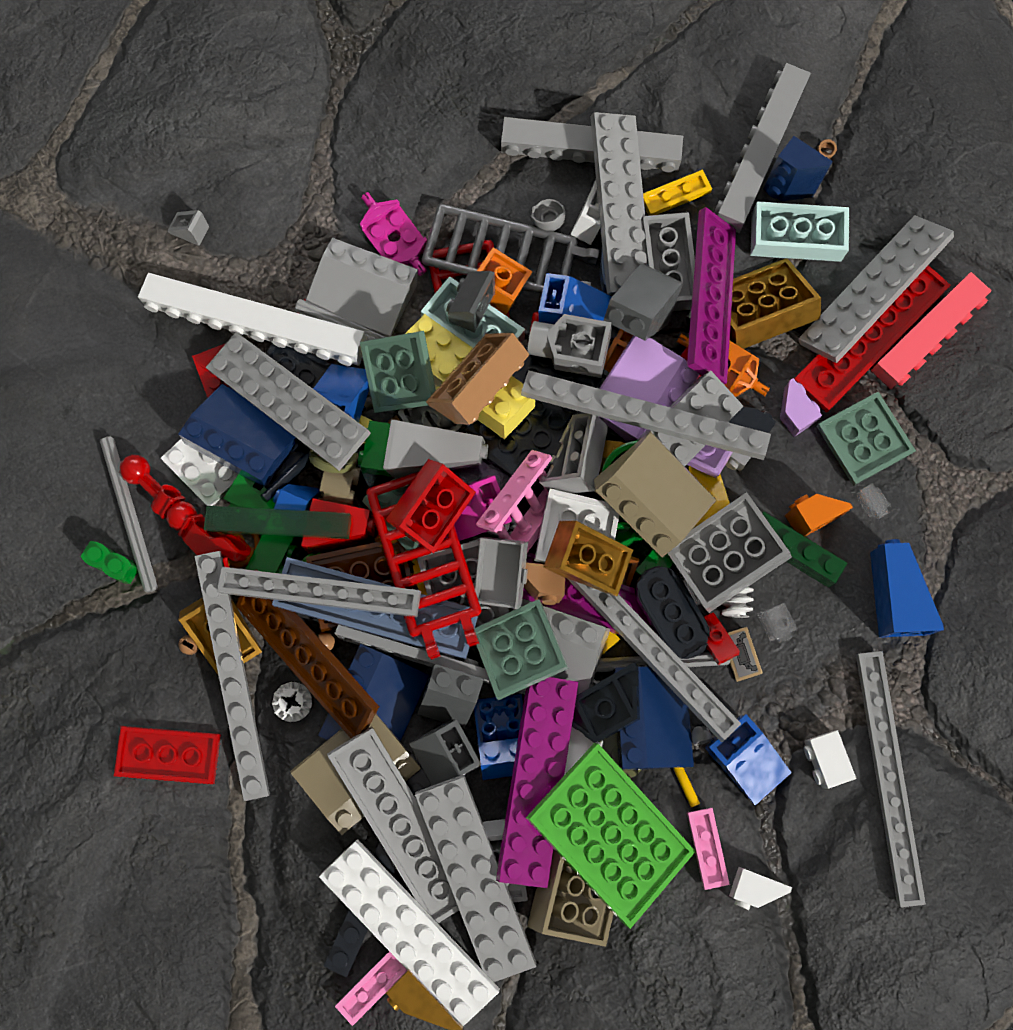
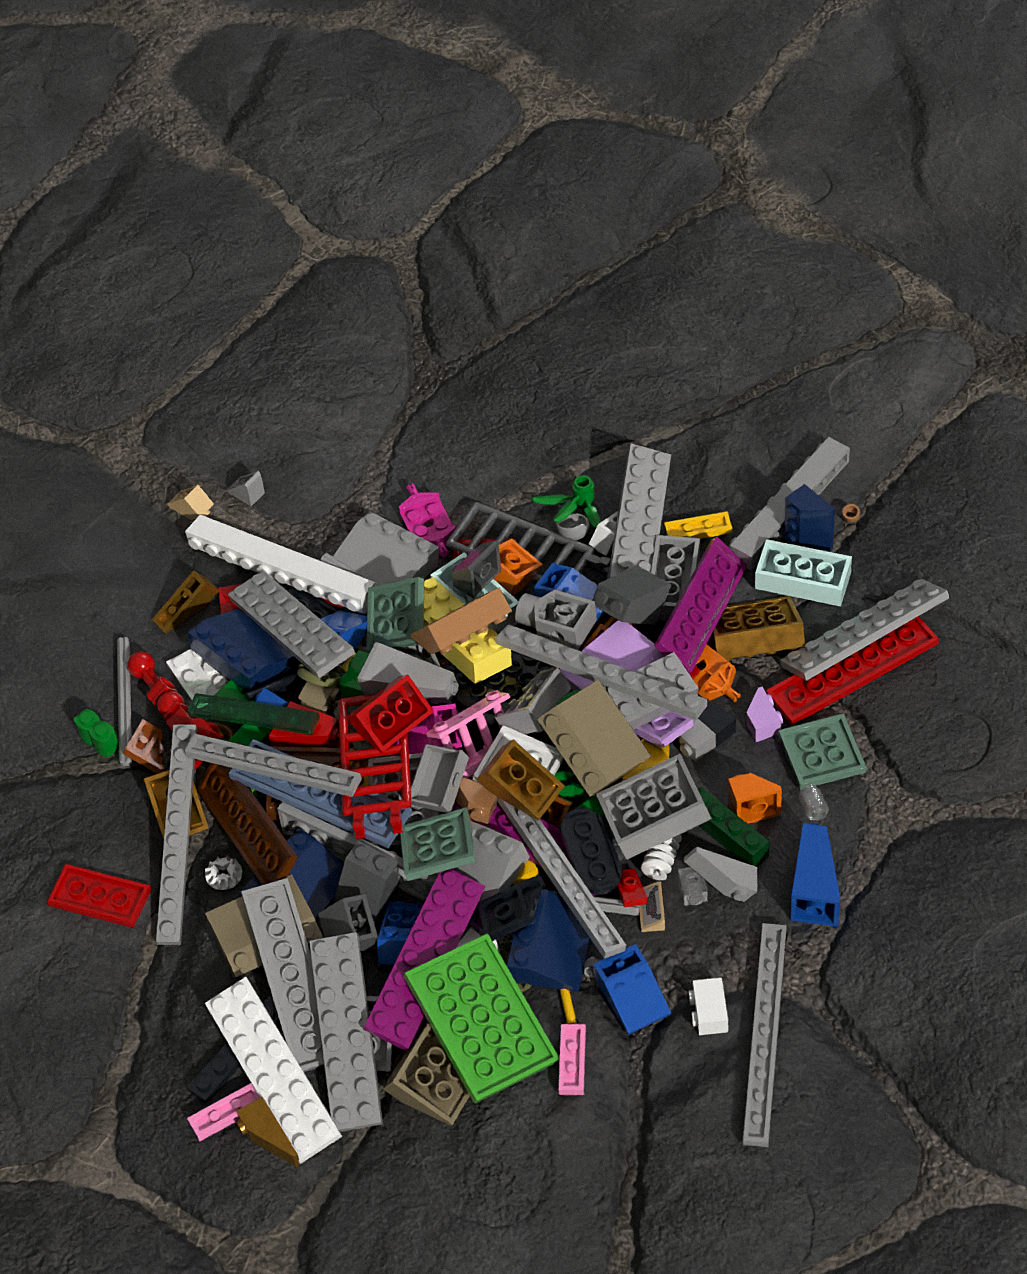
camera: 20 degrees right, 25 degrees down
(134, 256) = (191, 503): none -> tan slope
(161, 382) = (187, 600): none -> pearl gold slope
(167, 568) = (146, 747): none -> dark orange wing
(186, 650) = (141, 813): medium nougat hinge -> none
(548, 176) = (582, 496): none -> green plant
(576, 143) = (608, 473): light grey brick -> none
(755, 889) = (609, 1100): white slope -> none
(814, 610) = (725, 874): none -> light grey slope
(928, 333) = (909, 673): coral brick -> none

